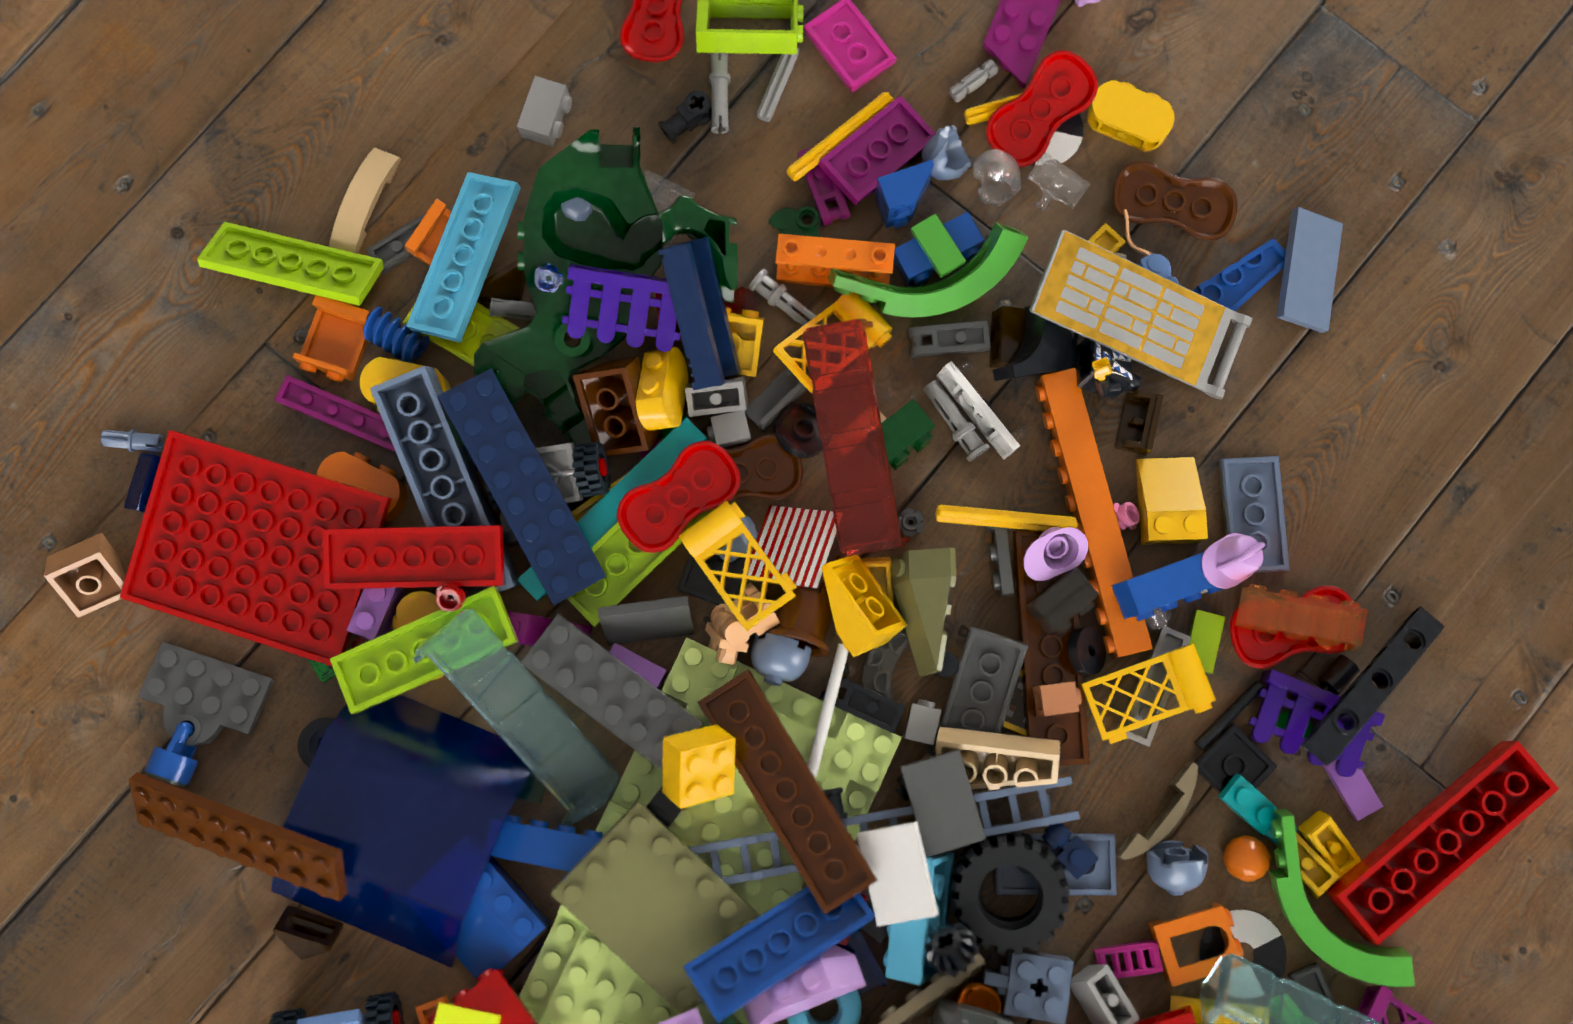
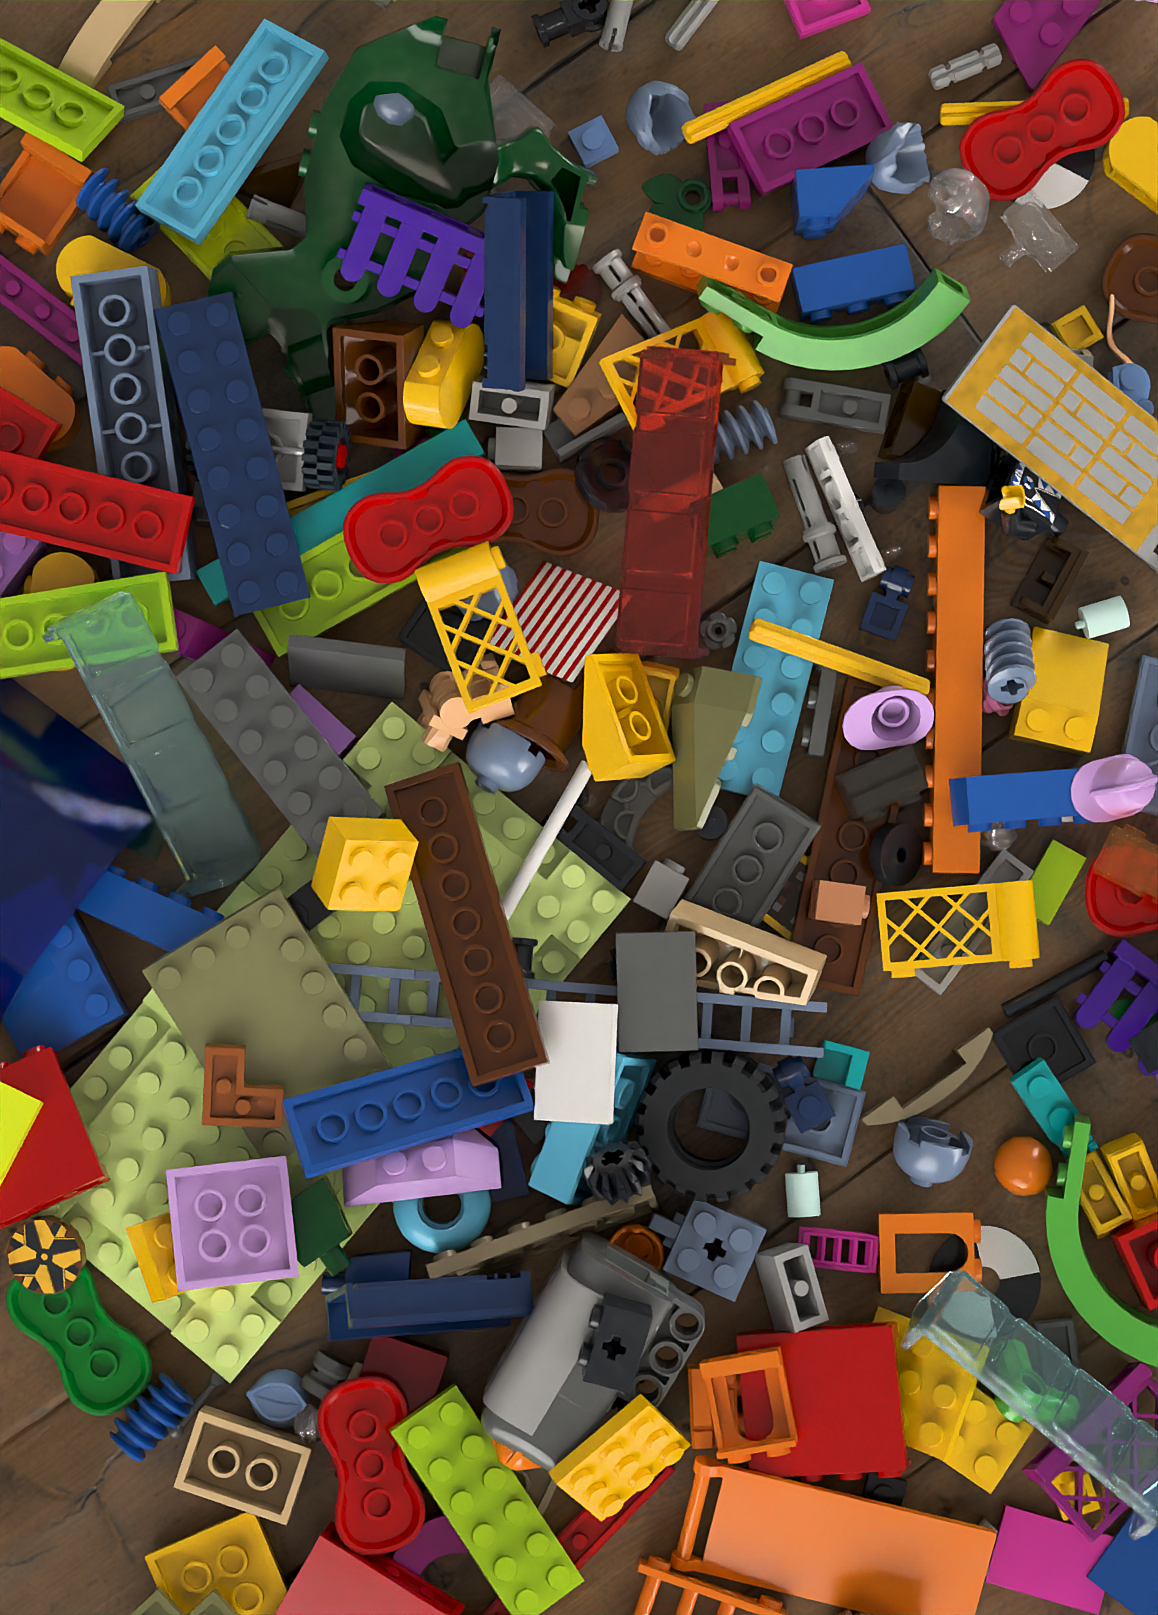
camera: 15 degrees right, 5 degrees up
(446, 603) = (102, 579): red plate -> none
(545, 285) = (326, 199): clear blue plate -> none
(645, 975) = (231, 1101): none -> dark orange plate
(725, 199) = (593, 142): none -> medium blue plate
(766, 168) = (657, 115): none -> sand blue hair
(773, 377) = (590, 397): none -> medium nougat wing
(890, 370) = (743, 429): none -> sand blue piece
(938, 245) = (852, 279): bright green tile -> none
(960, 486) = (800, 604): none -> medium azure plate
(992, 299) = (905, 368): none -> black bush
(1005, 392) = (886, 495): none -> black piece
(1028, 478) = (884, 613): none -> dark blue plate
(1090, 924) = (802, 1193): none -> light aqua piece
(1094, 818) = (841, 1064): none -> teal panel
(1129, 487) = (1008, 660): none -> sand blue piece
(1185, 439) = (1103, 617): none -> light aqua piece

